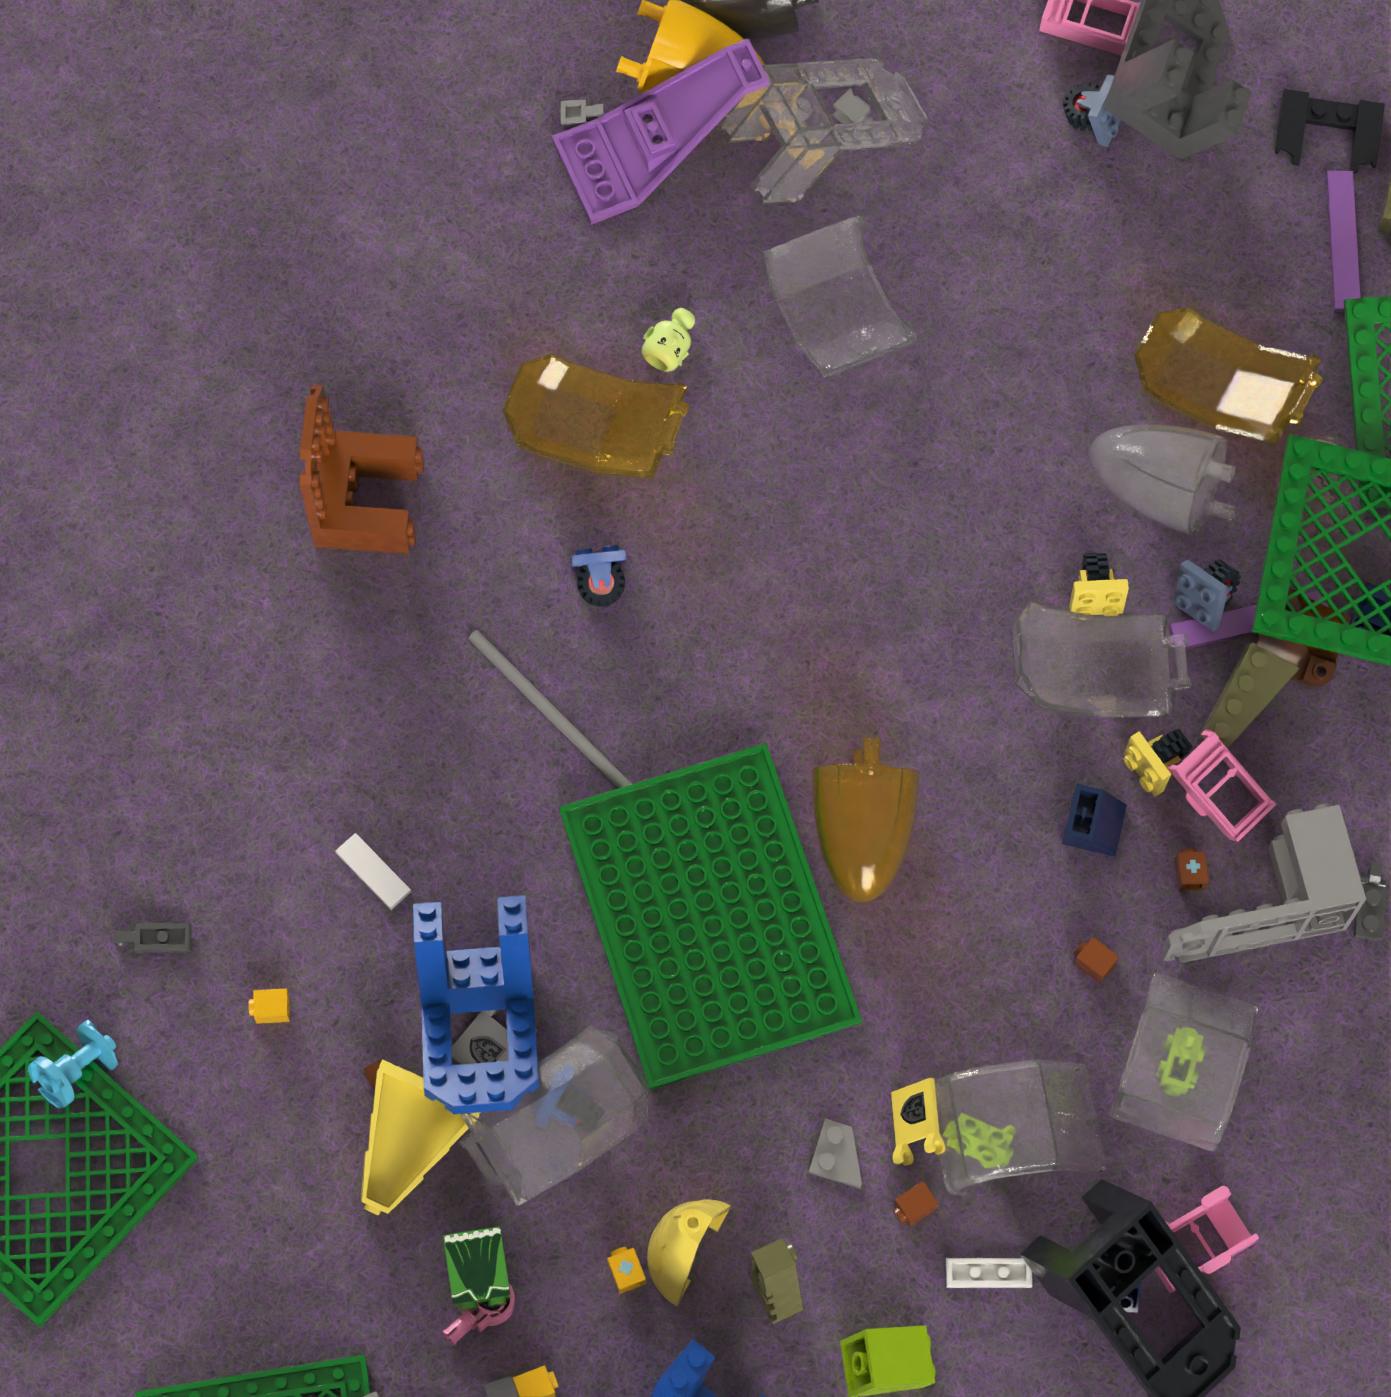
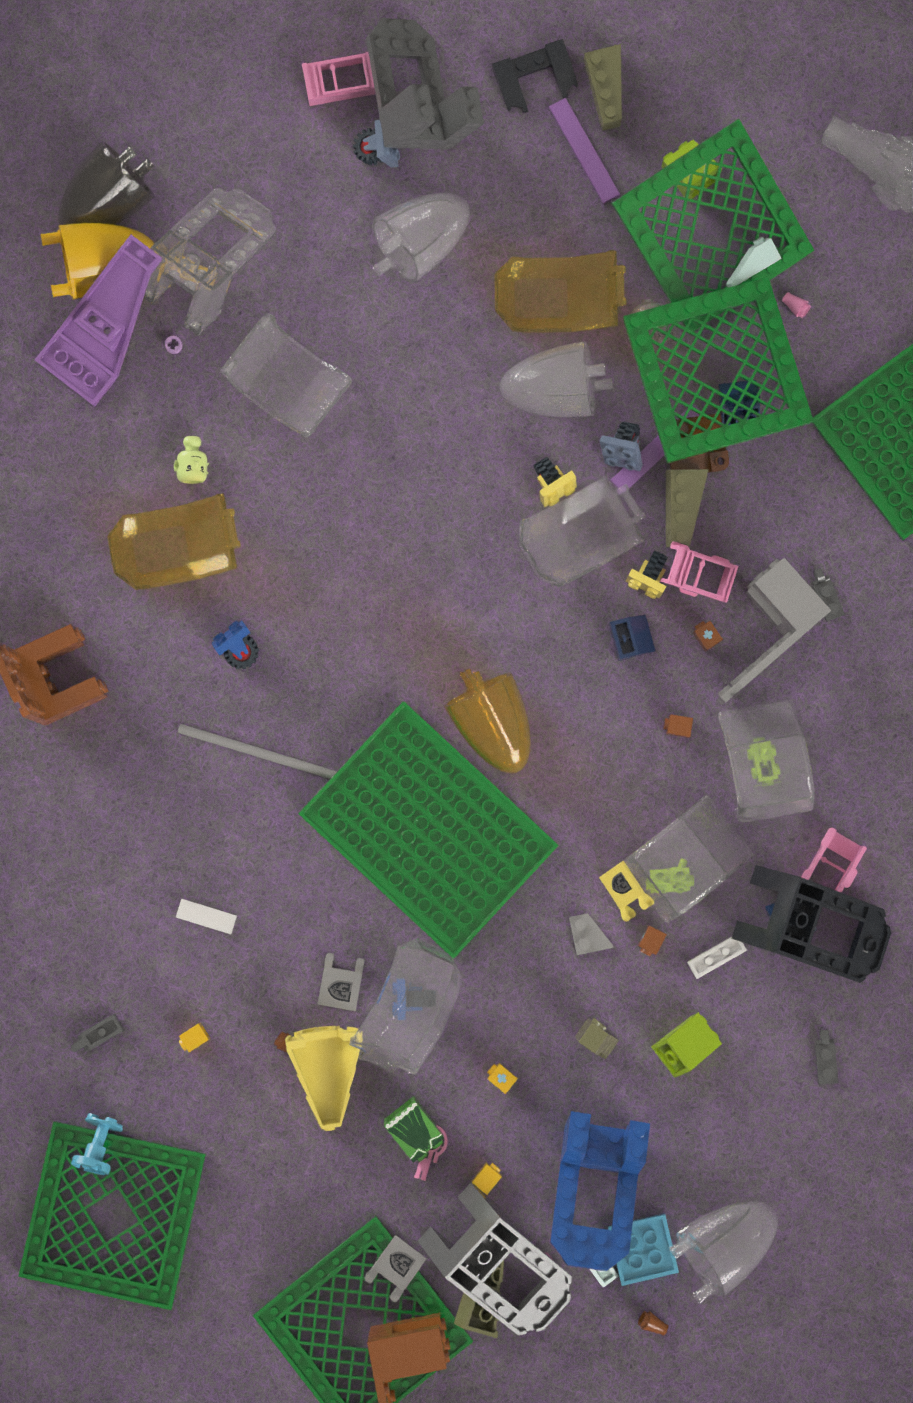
camera: 25 degrees left, 15 degrees up
(473, 983) = (309, 956): blue bracket -> none
(577, 112) = (40, 333): light grey plate -> none
(676, 1244) = (527, 1042): light yellow cone -> none
(726, 211) = (177, 348): none -> lavender bush
(851, 109) = (220, 234): light grey window -> none
(1092, 224) = (420, 233): none -> clear windscreen

